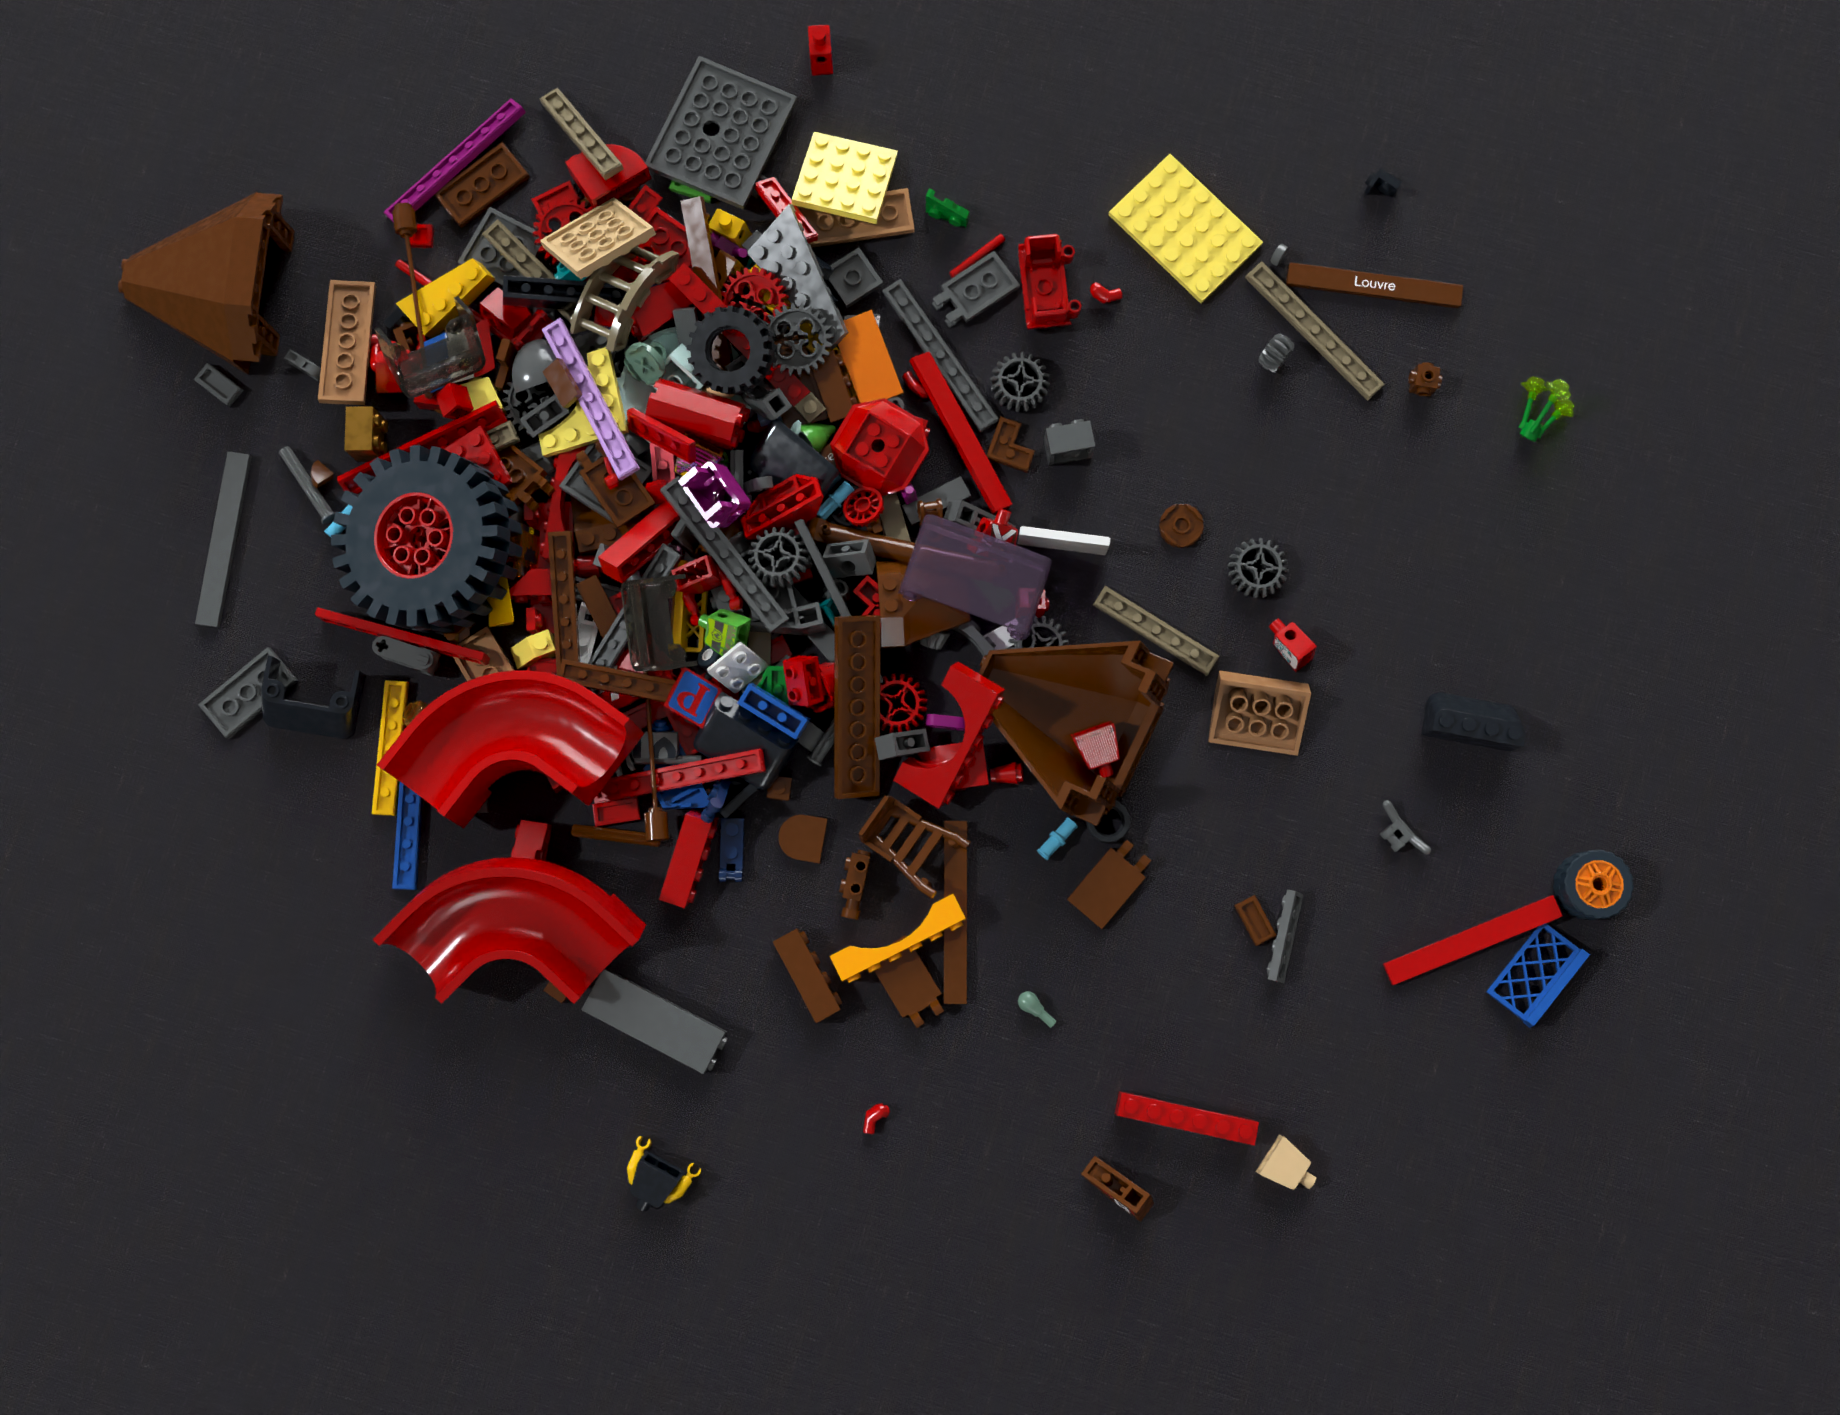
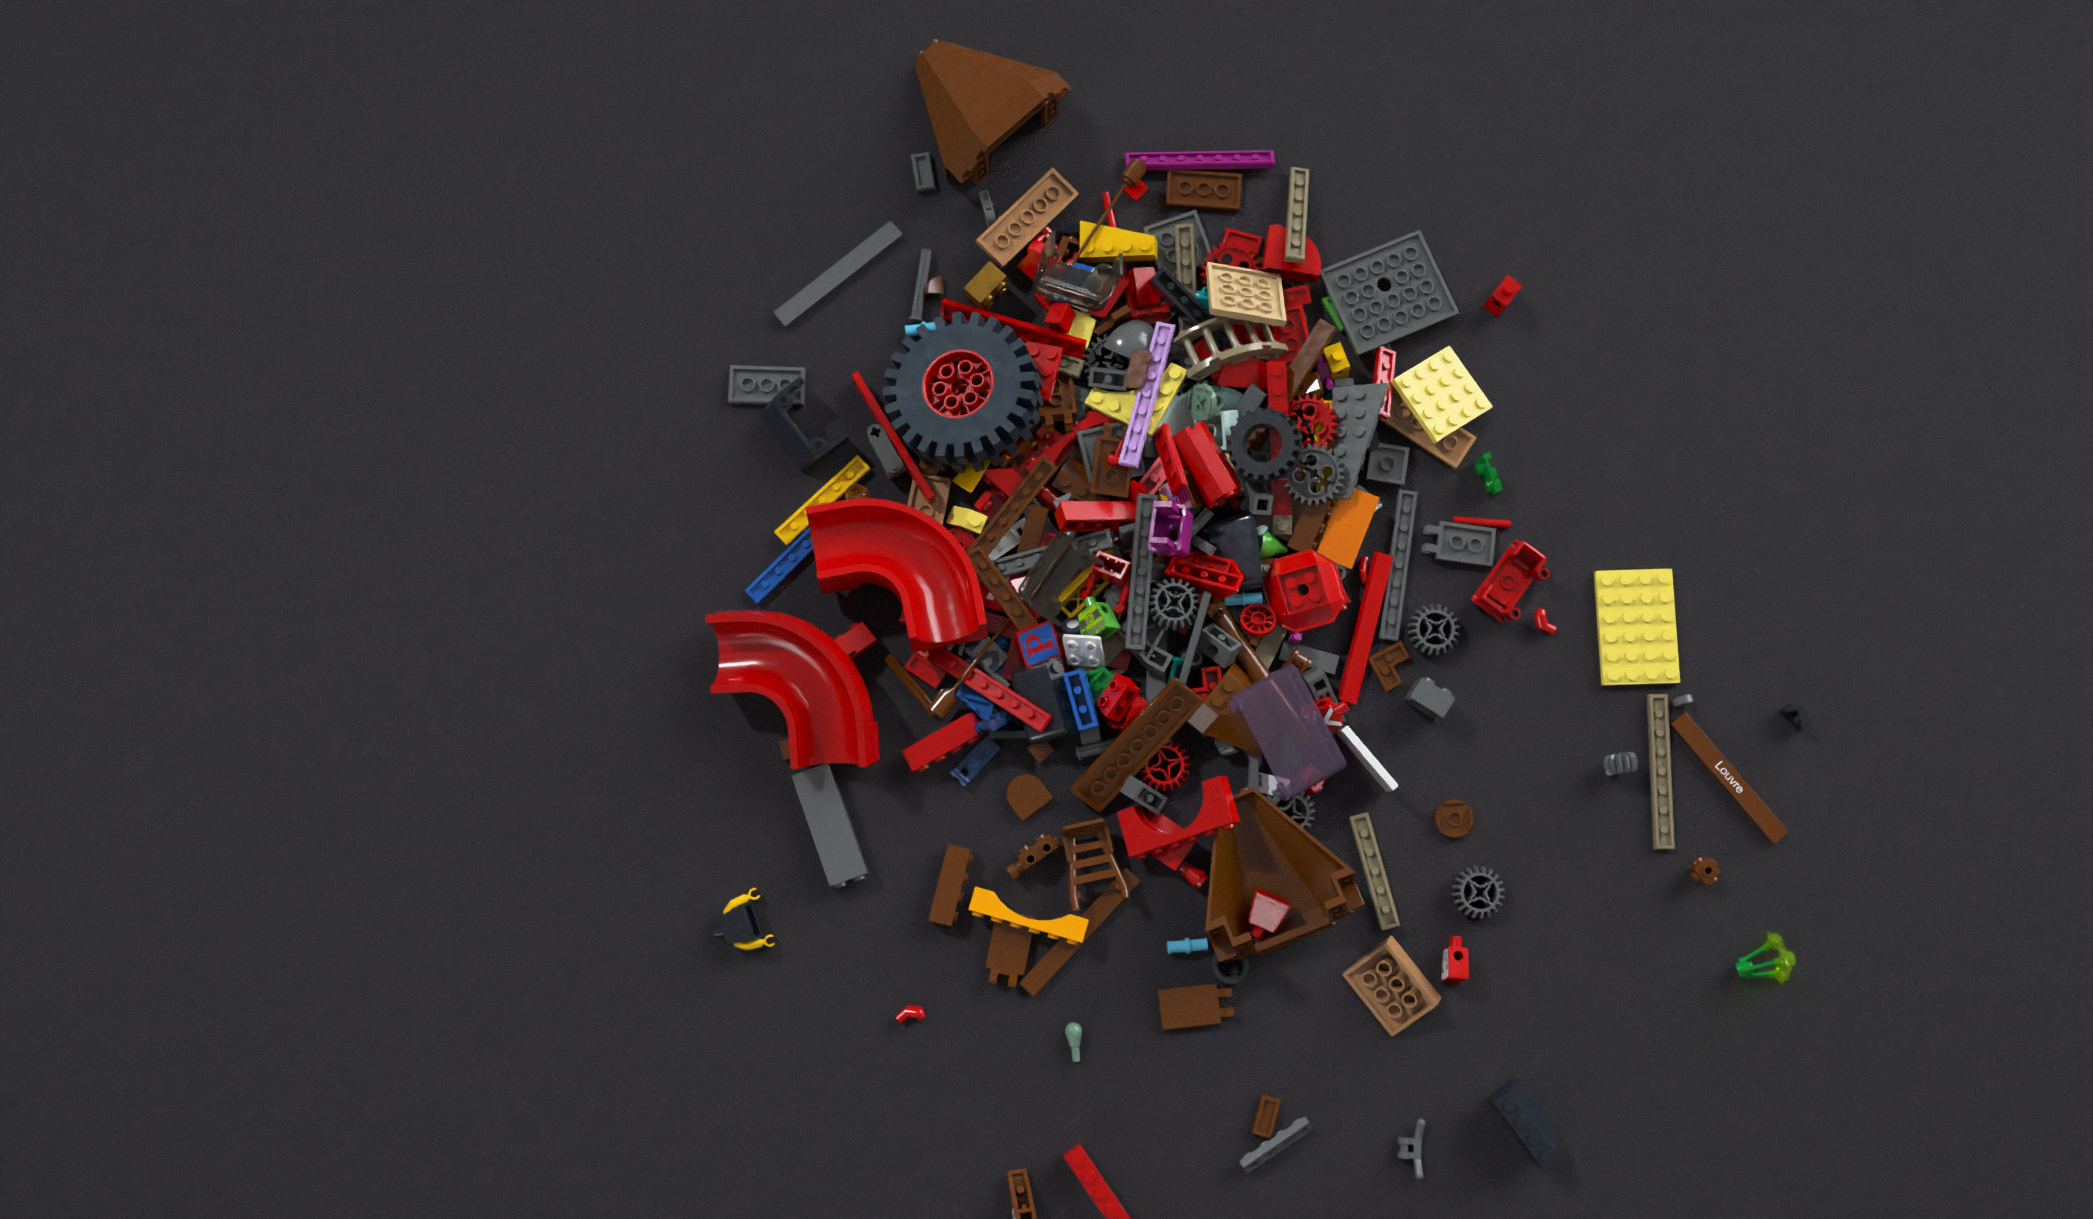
camera: 40 degrees right, 0 degrees up
(945, 722) = (1184, 805): magenta beam -> none

